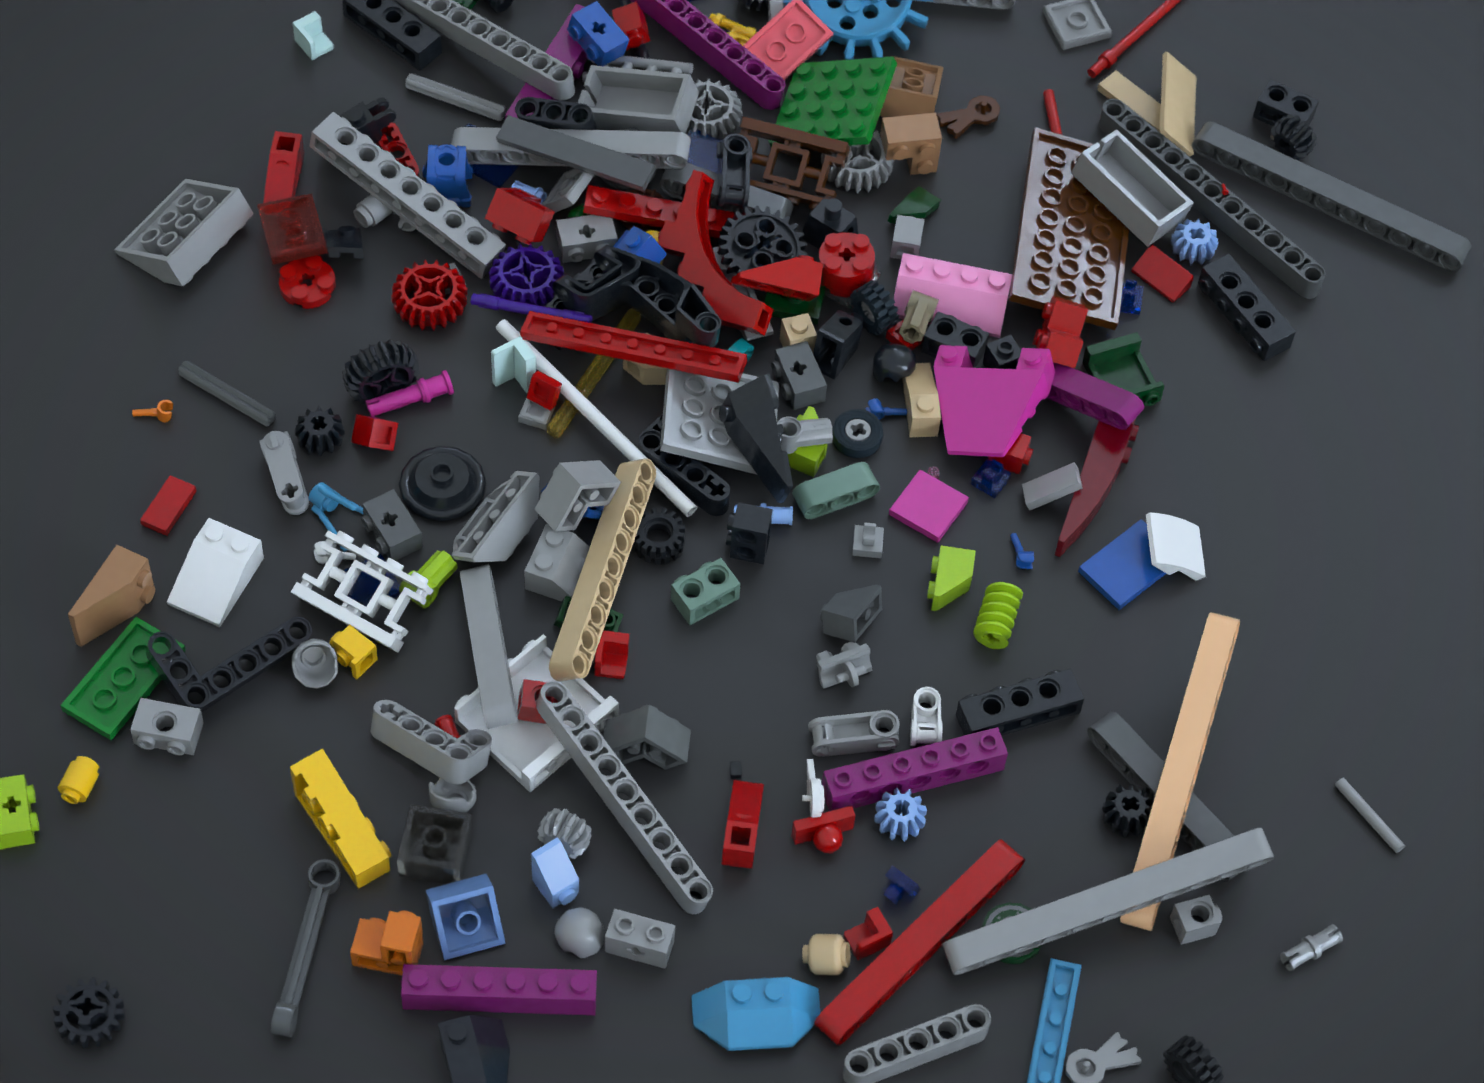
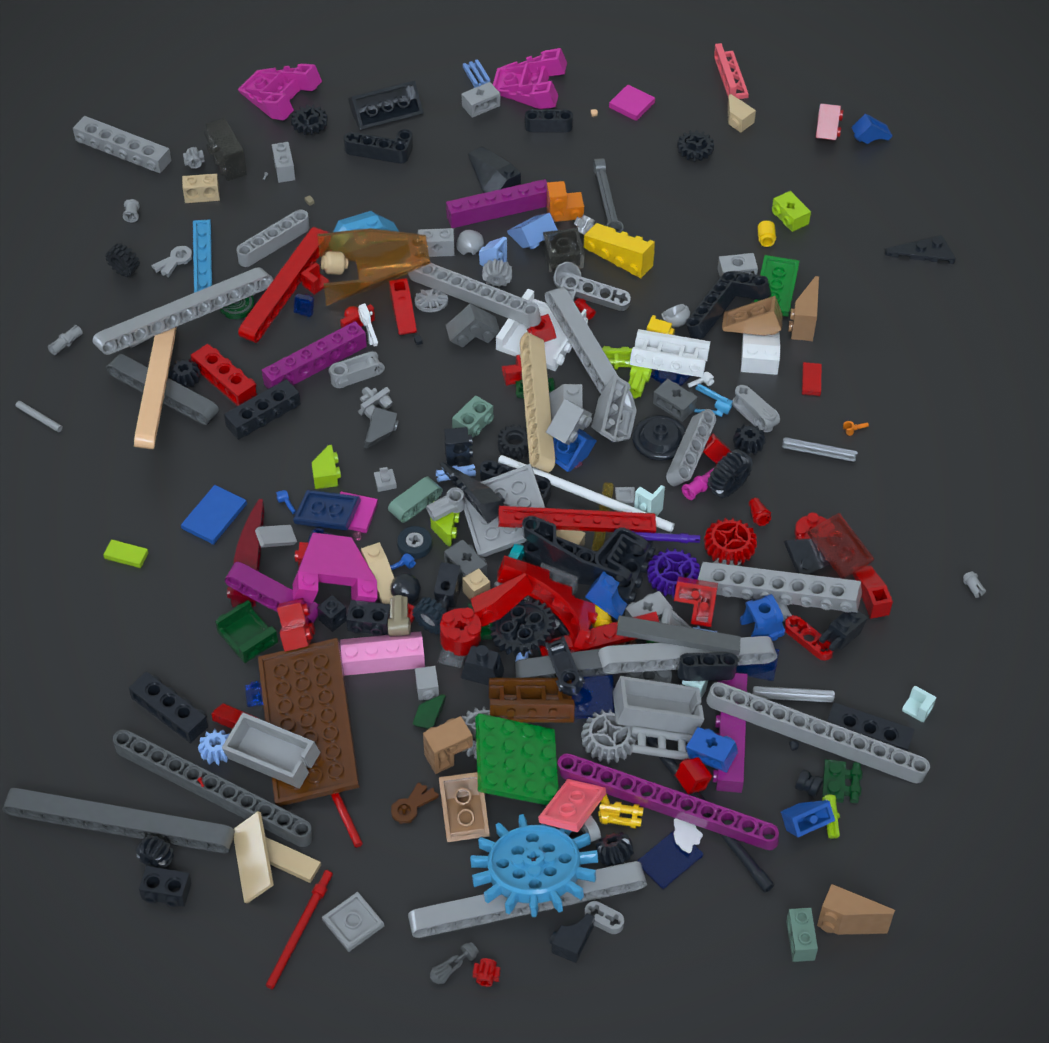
camera: 165 degrees right, 5 degrees down
(145, 152) = (974, 584): none -> light grey pin
(185, 230) = (911, 535): light grey slope -> none
(202, 615) = (755, 318): none -> medium nougat slope
(366, 323) = (760, 513): none -> red cone
(372, 892) = (584, 224): none -> light grey gear
(409, 439) = (691, 447): none -> light grey beam
(430, 623) = (618, 356): none -> lime hips
(544, 390) = (623, 495): red plate -> none
(690, 833) = (431, 298): none -> light grey wheel
(750, 901) = (378, 255): none -> clear orange windscreen
(900, 824) = (313, 333): light blue gear -> none
(926, 722) = (317, 389): white piece -> none
(967, 511) = (327, 510): none -> dark blue tile
(997, 615) = (289, 453): lime piece -> none
(1051, 747) = (224, 375): none -> red brick
(1175, 545) = (186, 524): white slope -> none
(1267, 542) = (126, 553): none -> lime tile

